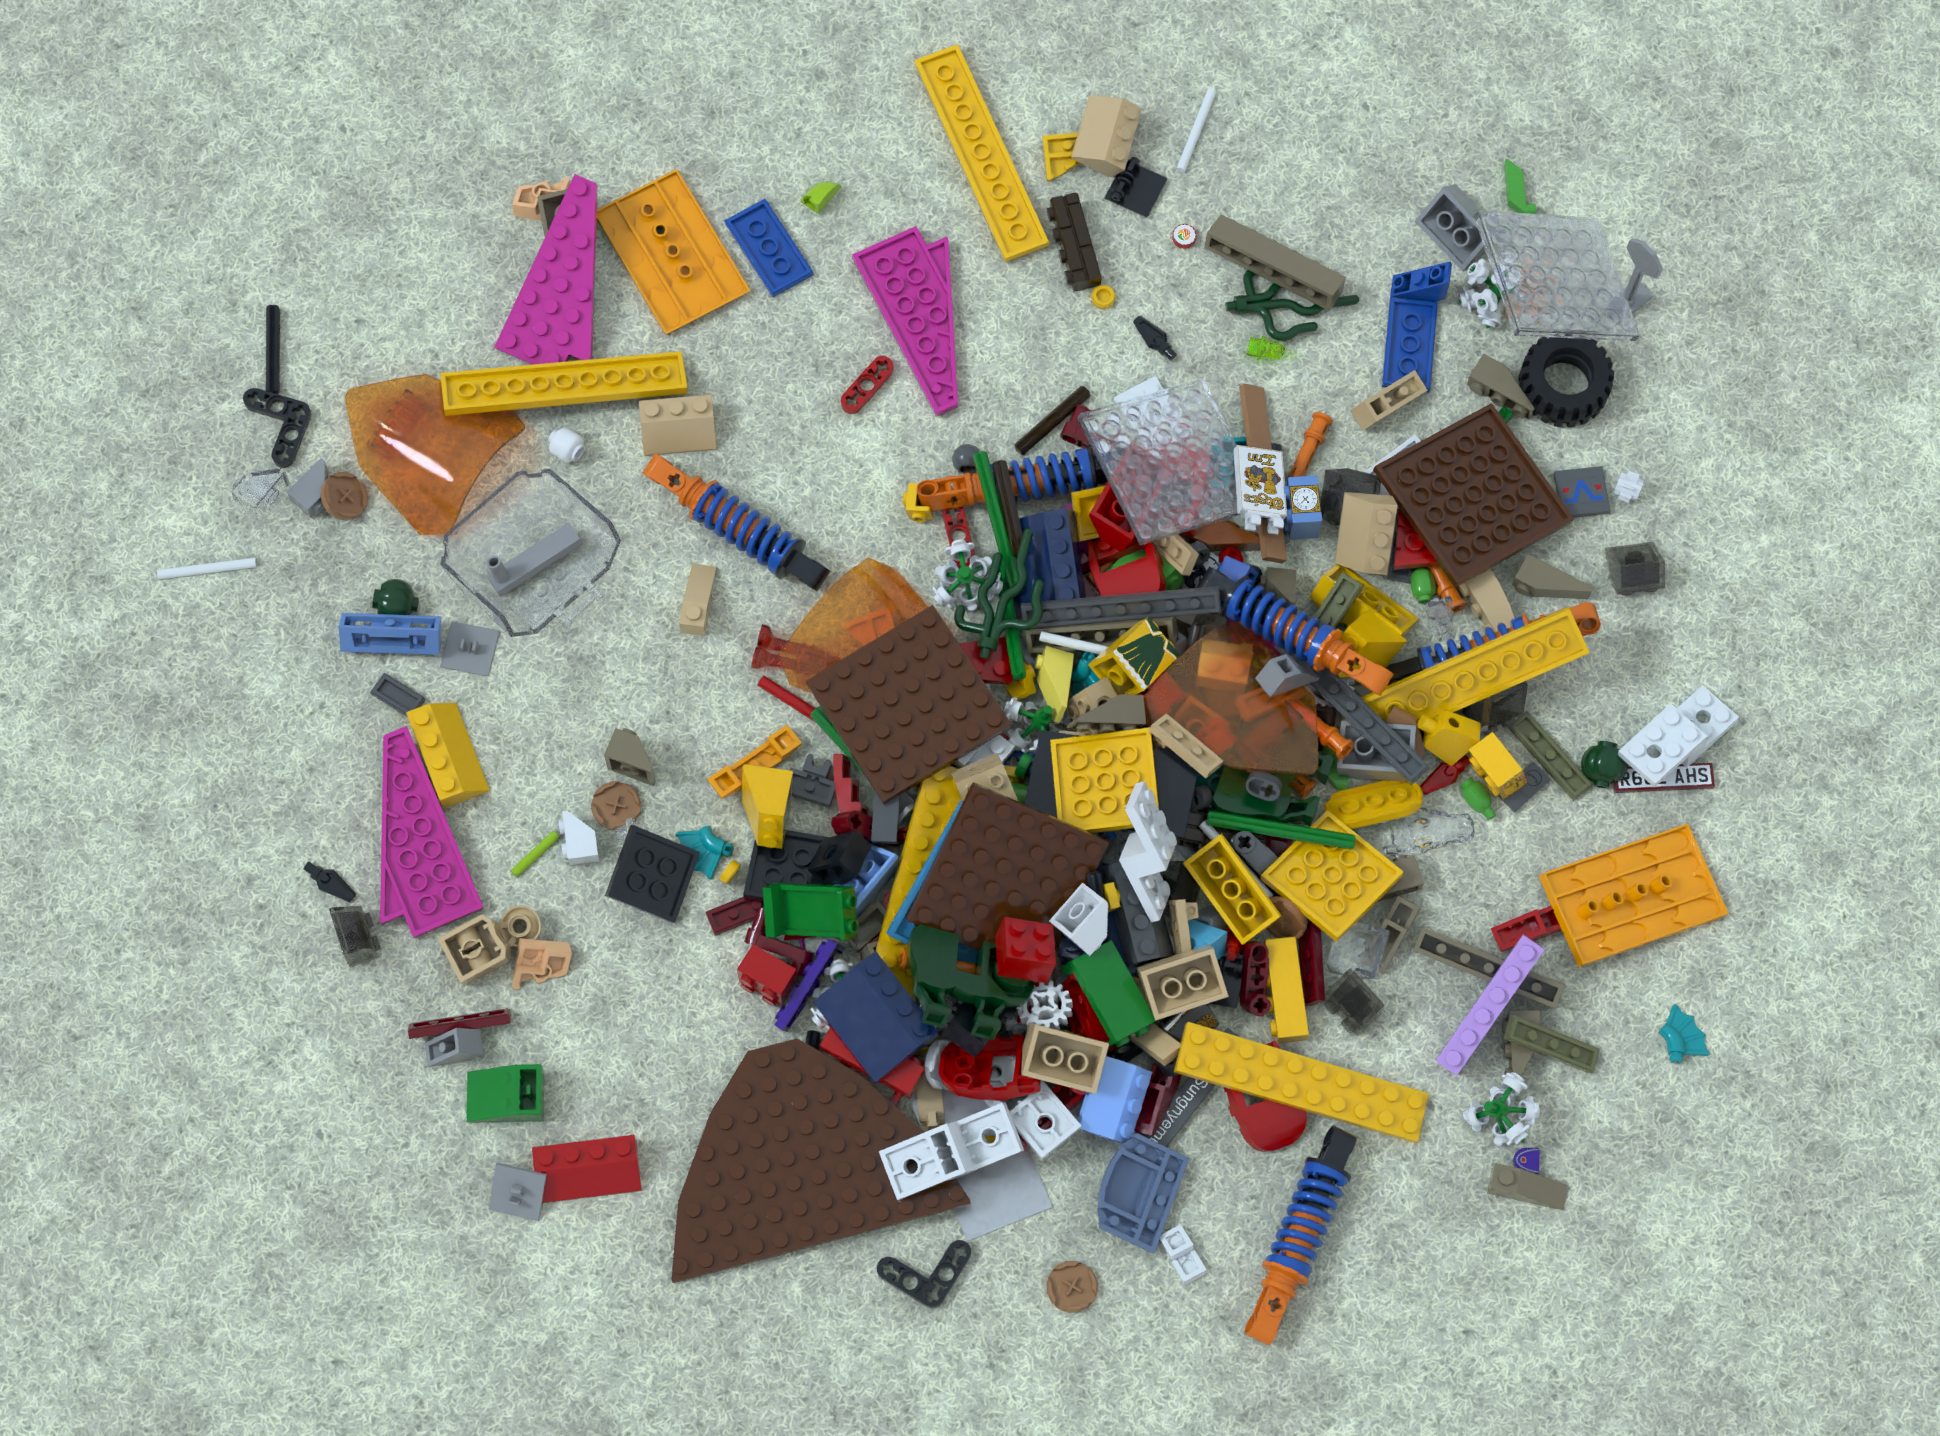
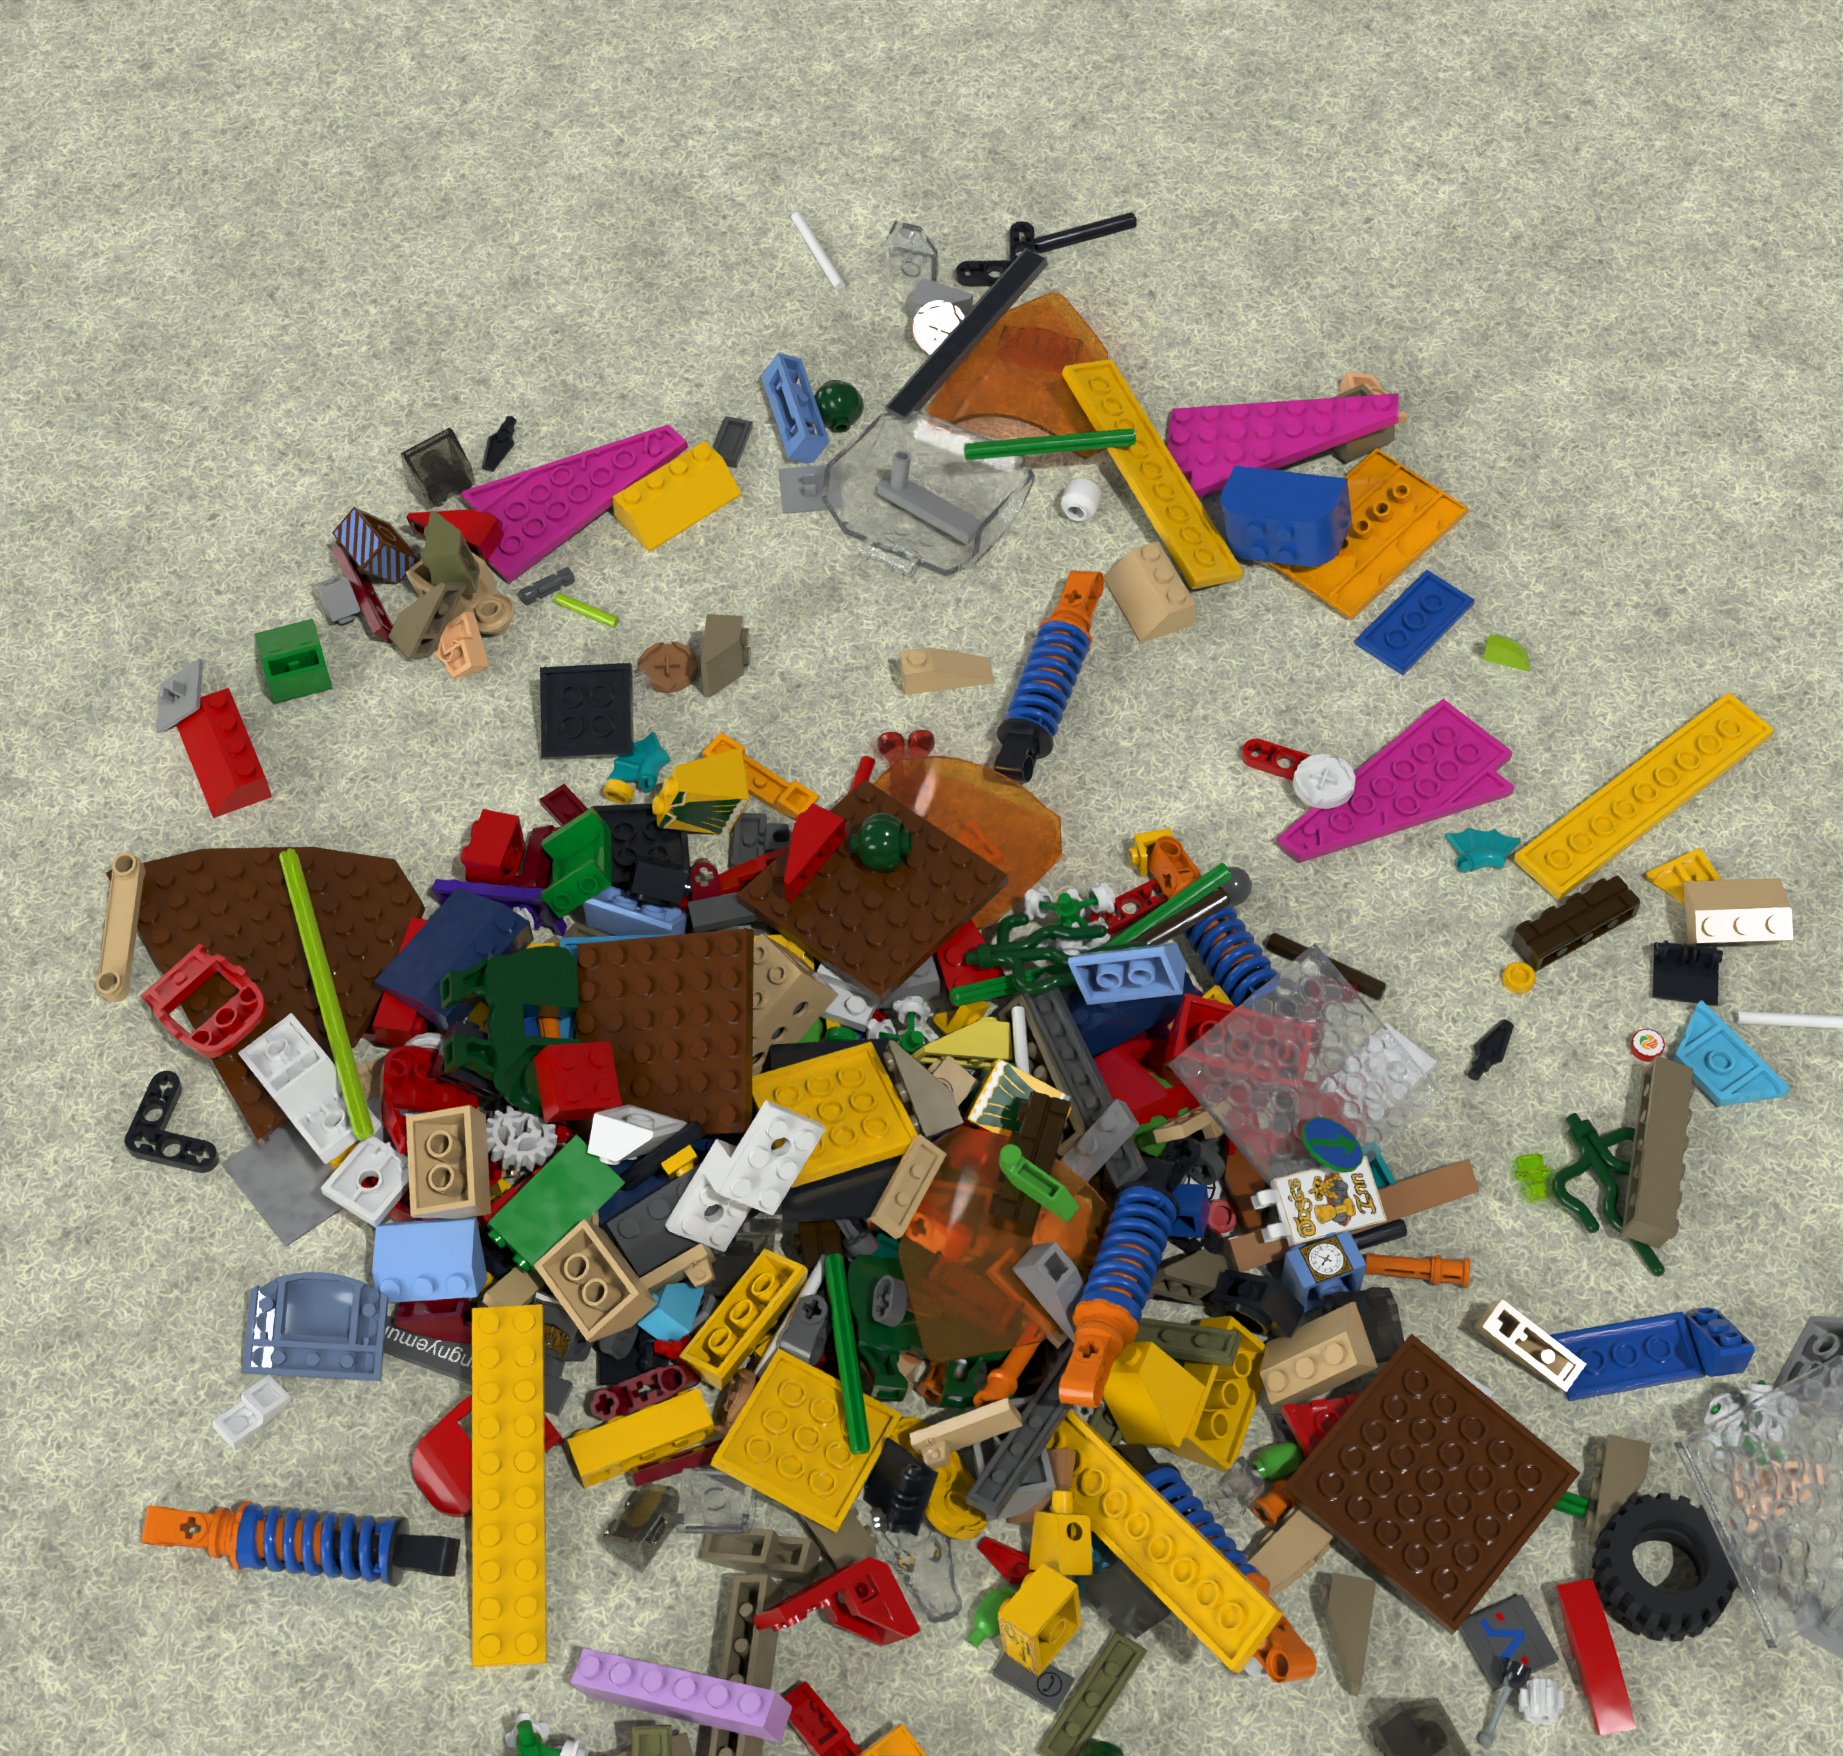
camera: 75 degrees right, 15 degrees down
(368, 475) = (967, 334): none -> black tile
(422, 1001) = (375, 546): none -> reddish brown container
(433, 922) = (479, 529): none -> red slope
(482, 933) = (448, 554): none -> olive slope
(499, 878) = (546, 586): none -> dark grey axle
(516, 978) = (424, 621): none -> dark tan slope
(523, 447) = (1049, 444): none -> green axle
(581, 840) = (612, 639): white slope -> none
(653, 302) = (1285, 516): none -> blue brick
(736, 1275) = (120, 927): none -> tan piece
(866, 733) = (813, 841): none -> red slope
(869, 1202) = (229, 1022): none -> red slope
(871, 1120) = (326, 996): none -> lime axle
(882, 682) = (882, 843): none -> dark green plant
(900, 363) = (1324, 781): none -> white tile
(987, 279) = (1481, 848): none -> teal arm
(1054, 544) = (1129, 973): none -> light blue slope
(1072, 1286) = (184, 1295): medium nougat tile -> none
(1184, 613) = (1101, 1140): none -> light grey plate
(1203, 657) = (1038, 1140): none -> dark brown brick
(1213, 193) = (1724, 1063): none -> medium azure wing
(1228, 462) = (1332, 1144): none -> blue piece
(1232, 654) = (1037, 1183): none -> bright green piece
(1316, 556) = (1258, 1303): none -> black brick
(1363, 793) = (940, 1439): none -> tan hinge
(1382, 824) = (901, 1488): none -> black hinge
(1450, 882) = (872, 1609): none -> red bracket
(1608, 443) = (1595, 1656): none -> red slope
(1610, 495) = (1513, 1676): none -> hinge

